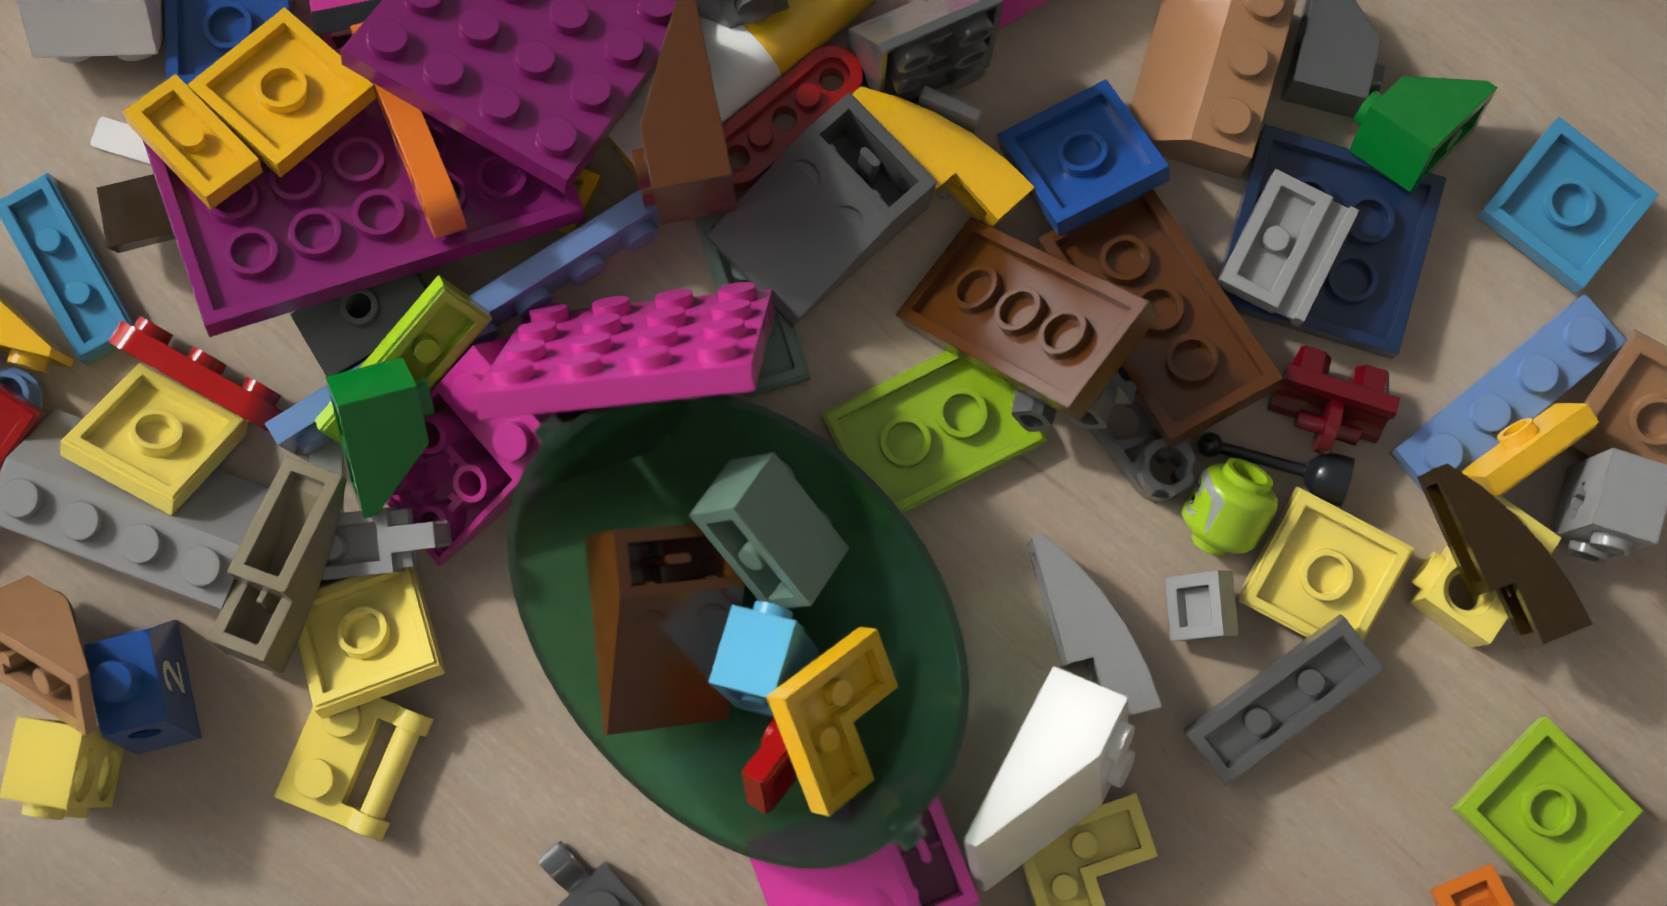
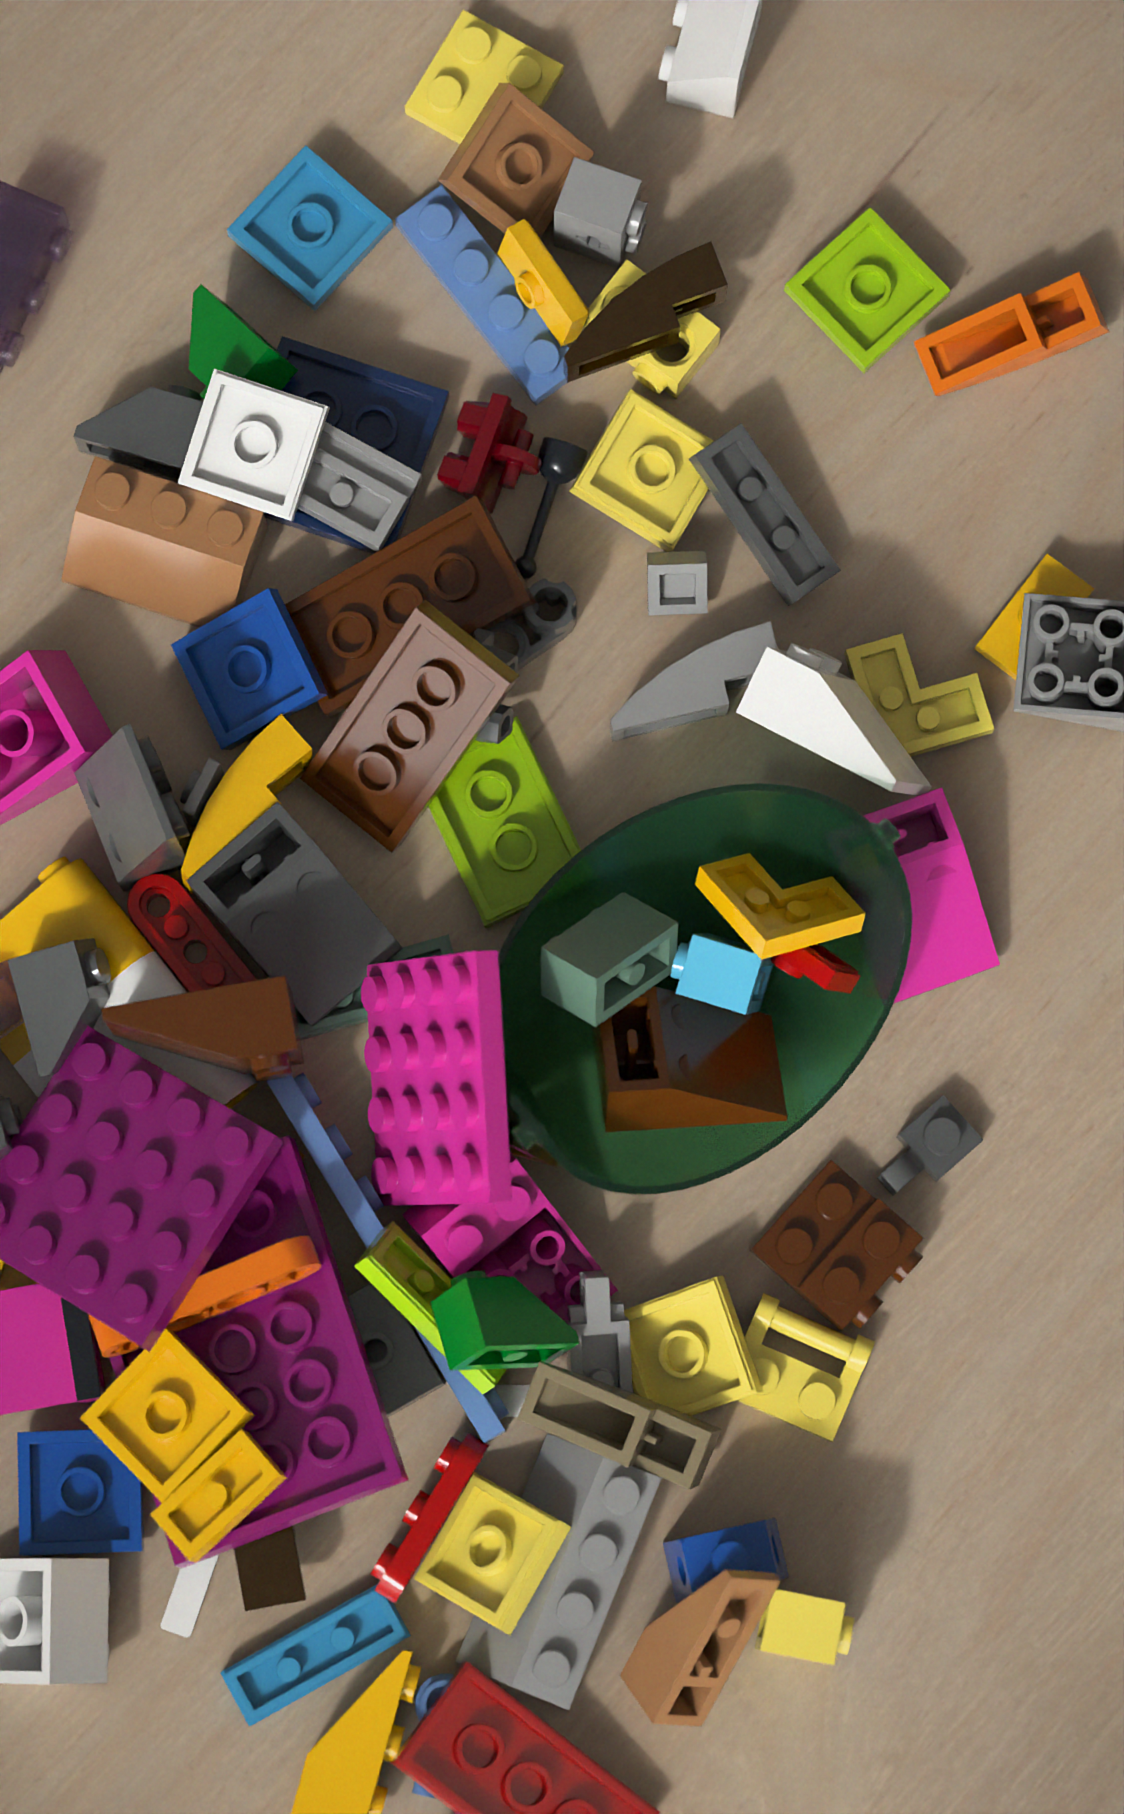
camera: 90 degrees left, 0 degrees up
(480, 801) = (839, 1247): none -> reddish brown plate
(1230, 507) = (587, 551): lime head -> none
(1324, 139) = (253, 445): none -> white tile

